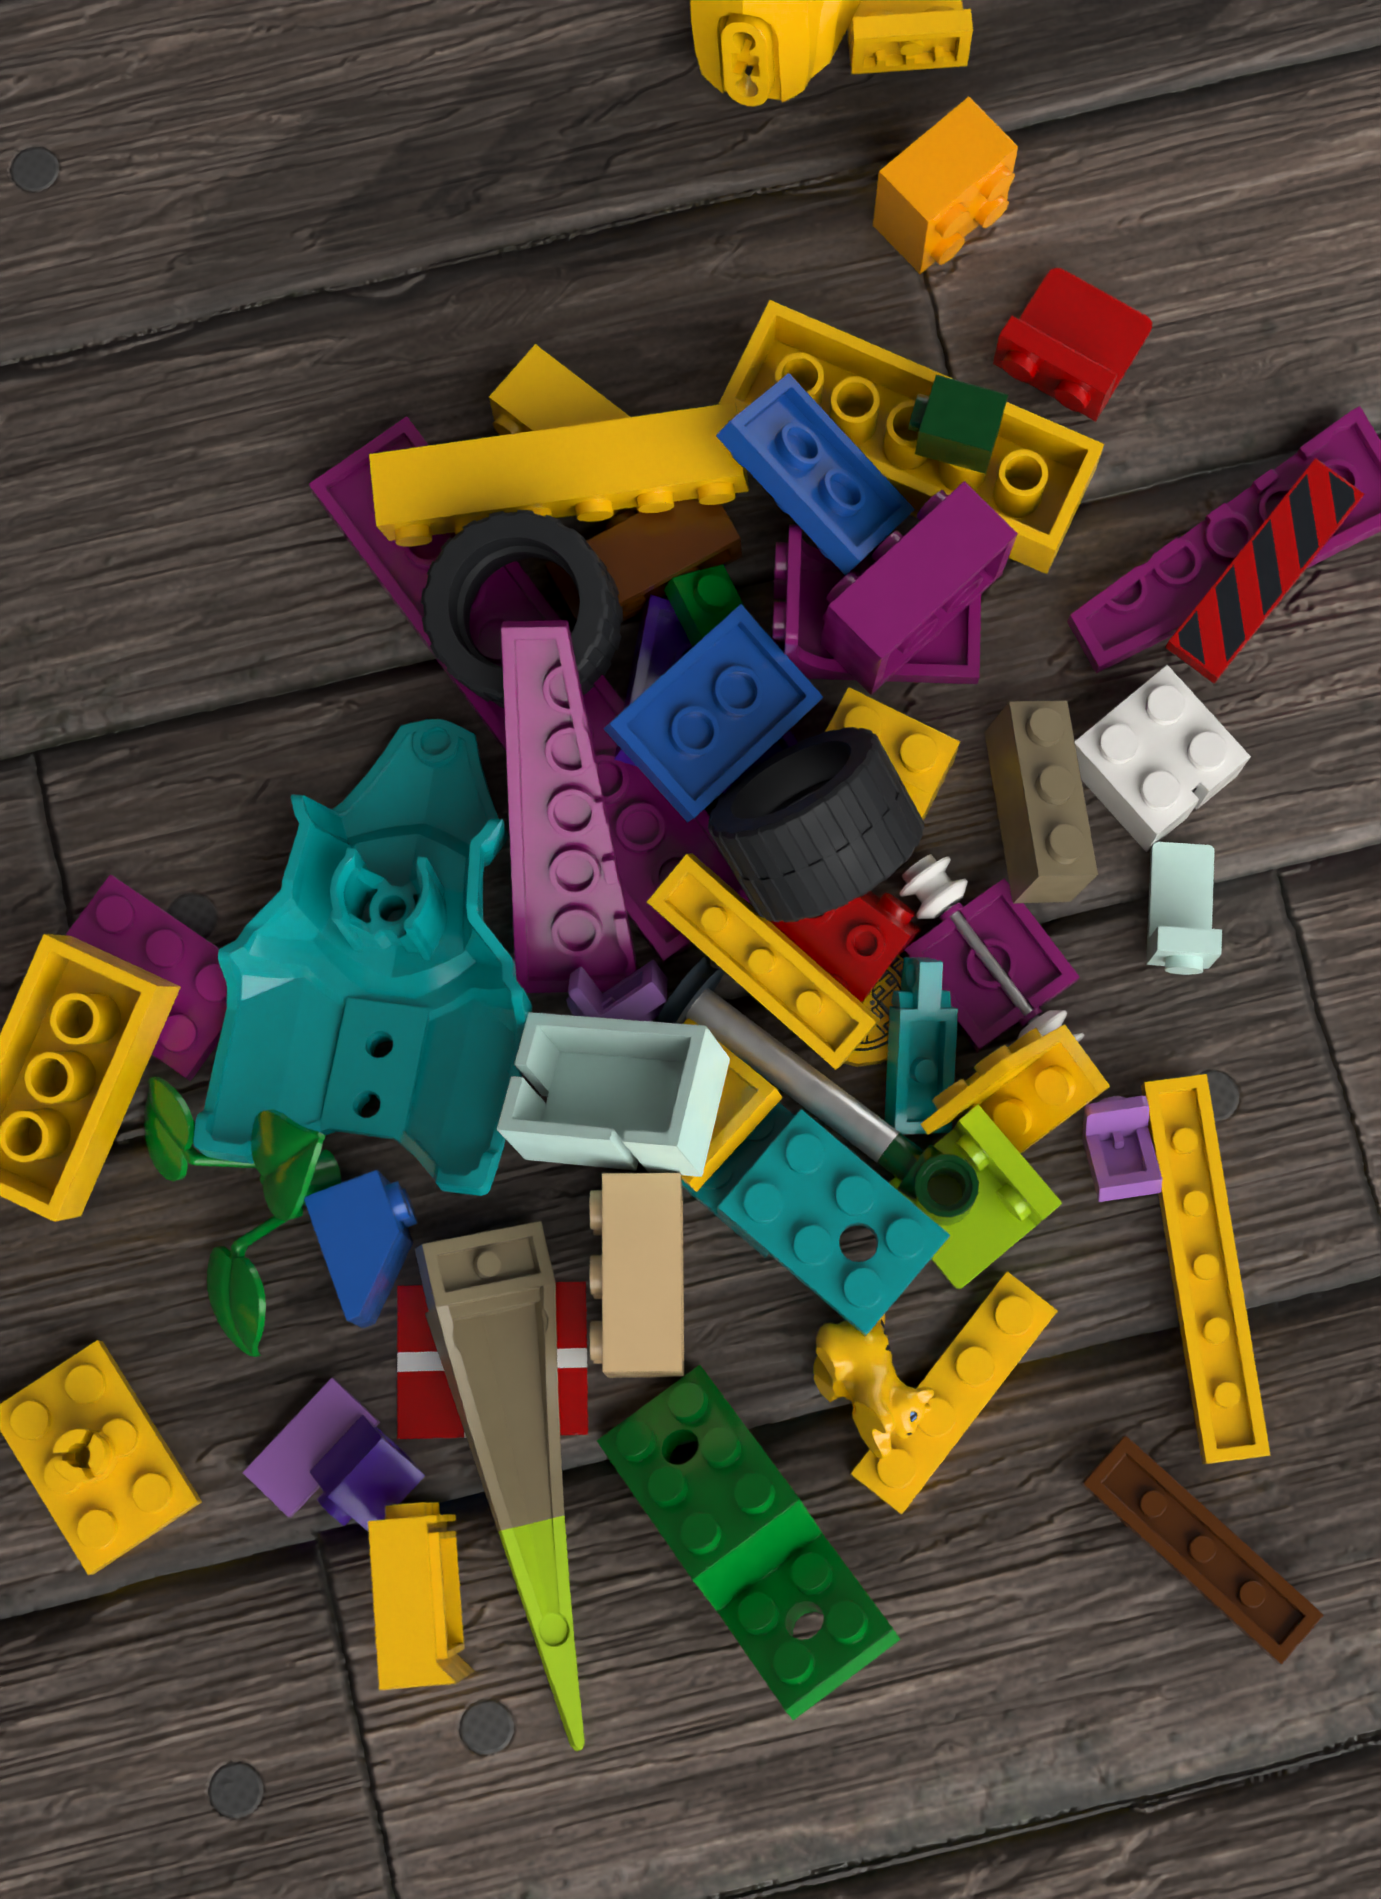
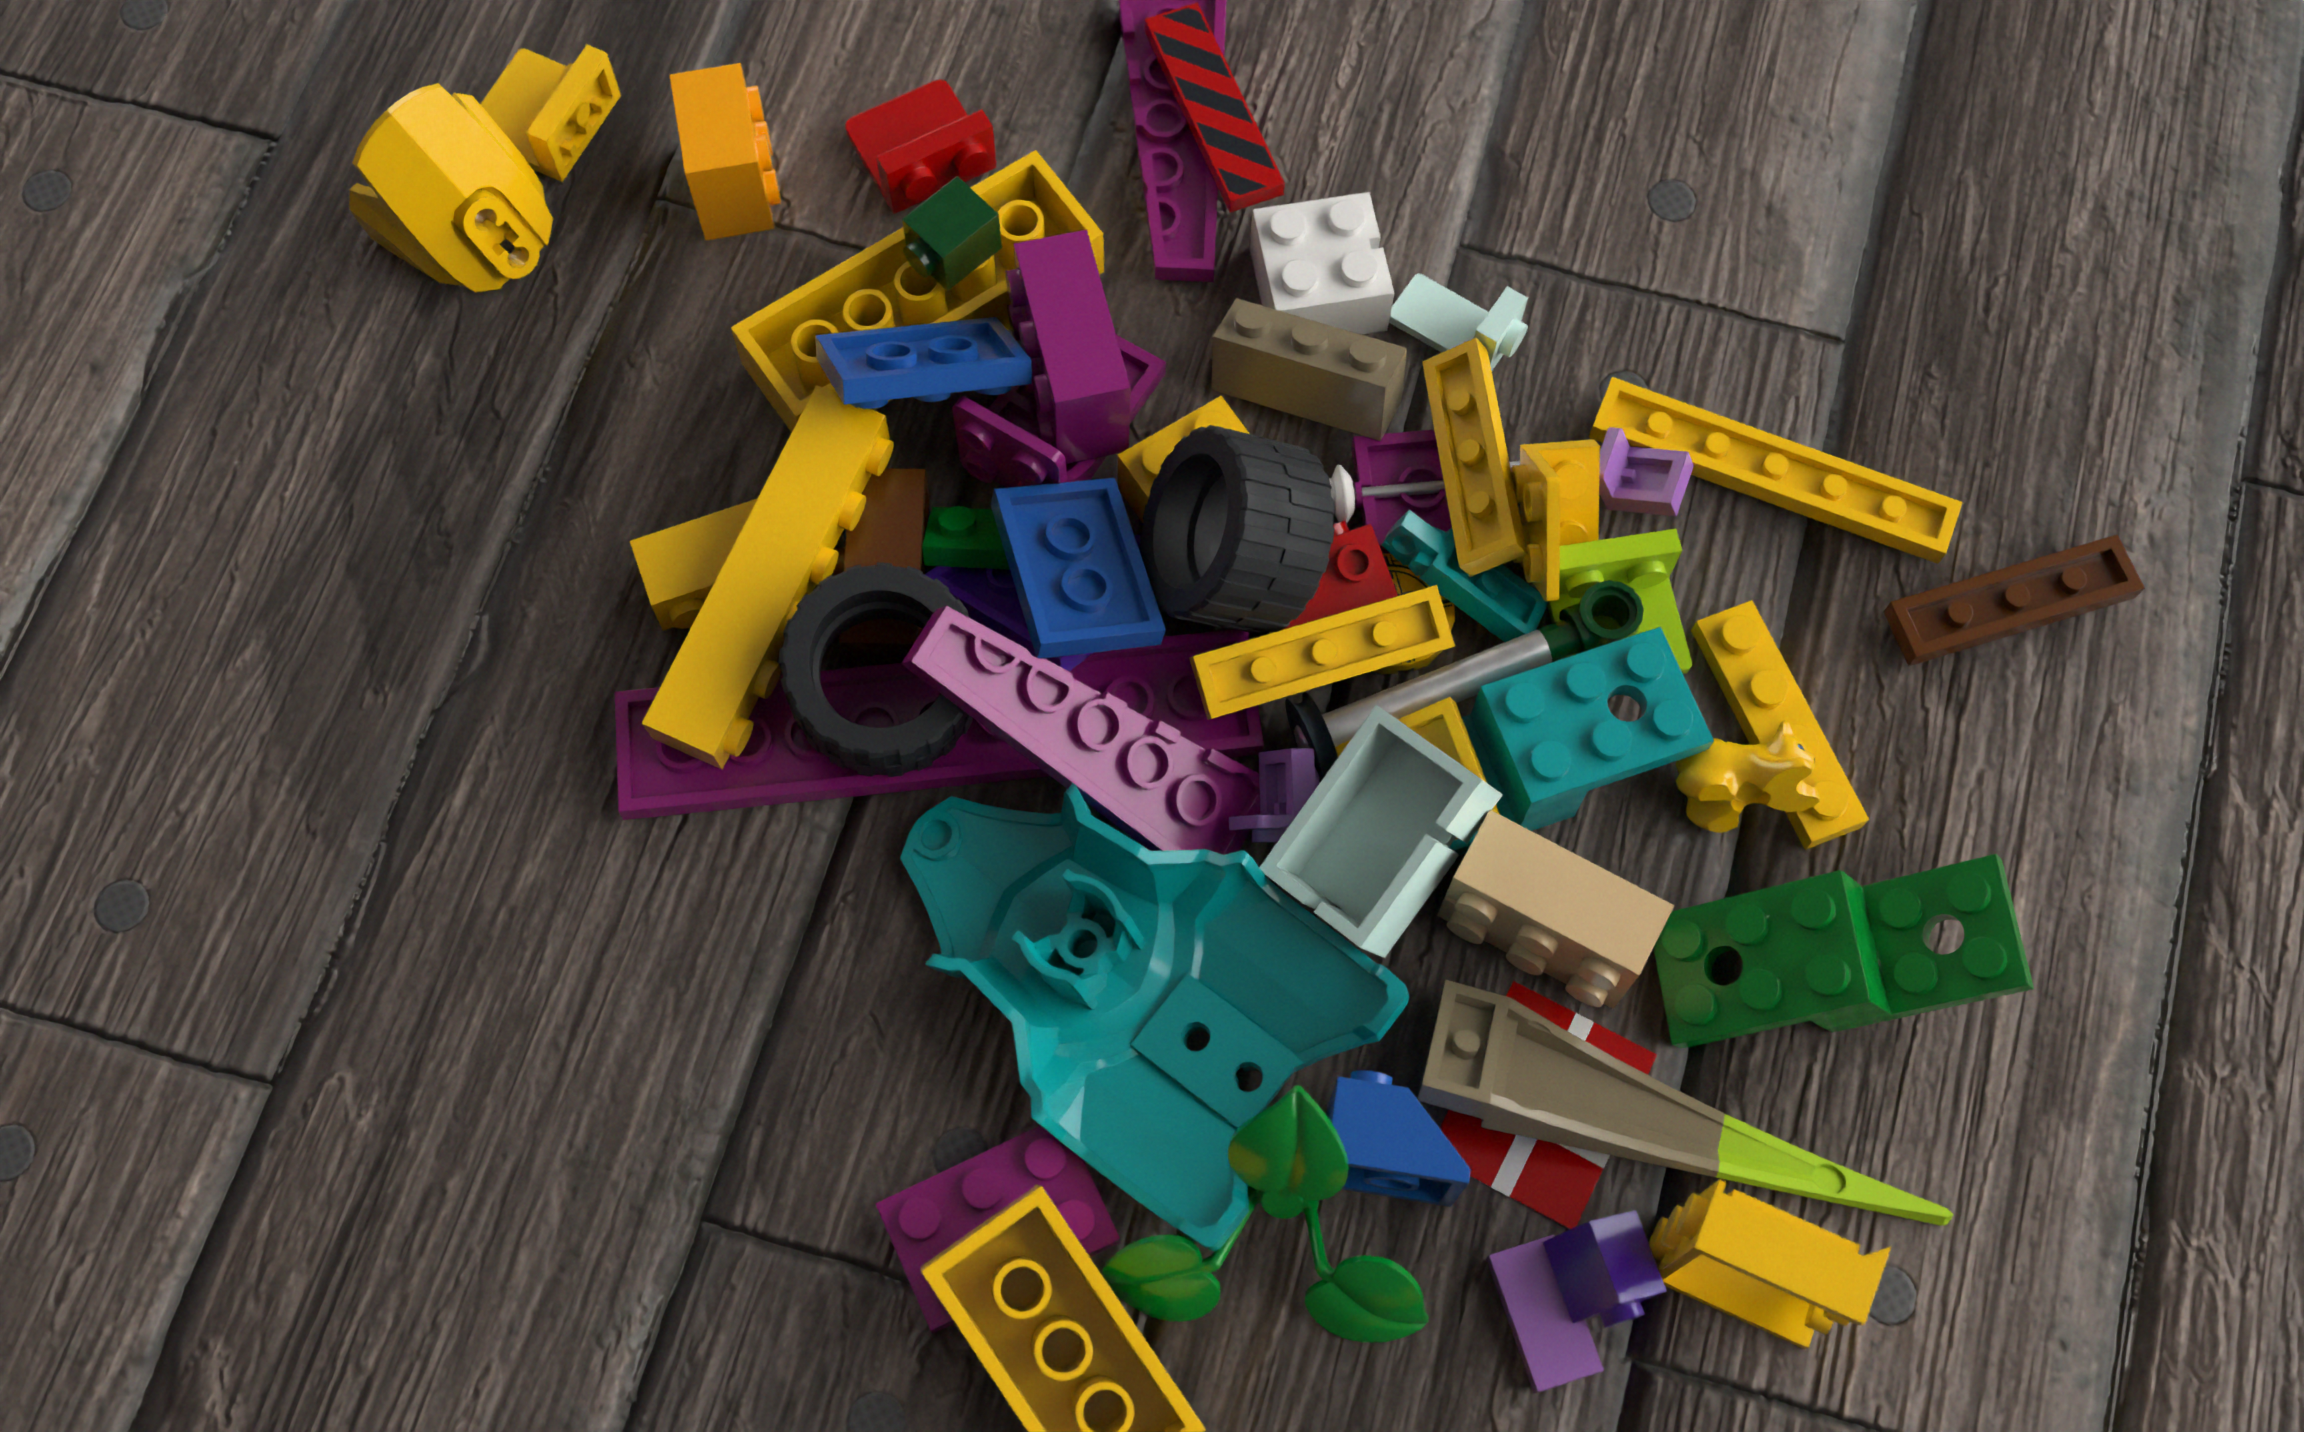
camera: 65 degrees left, 10 degrees down
(1033, 989) = (1474, 458): none -> yellow plate

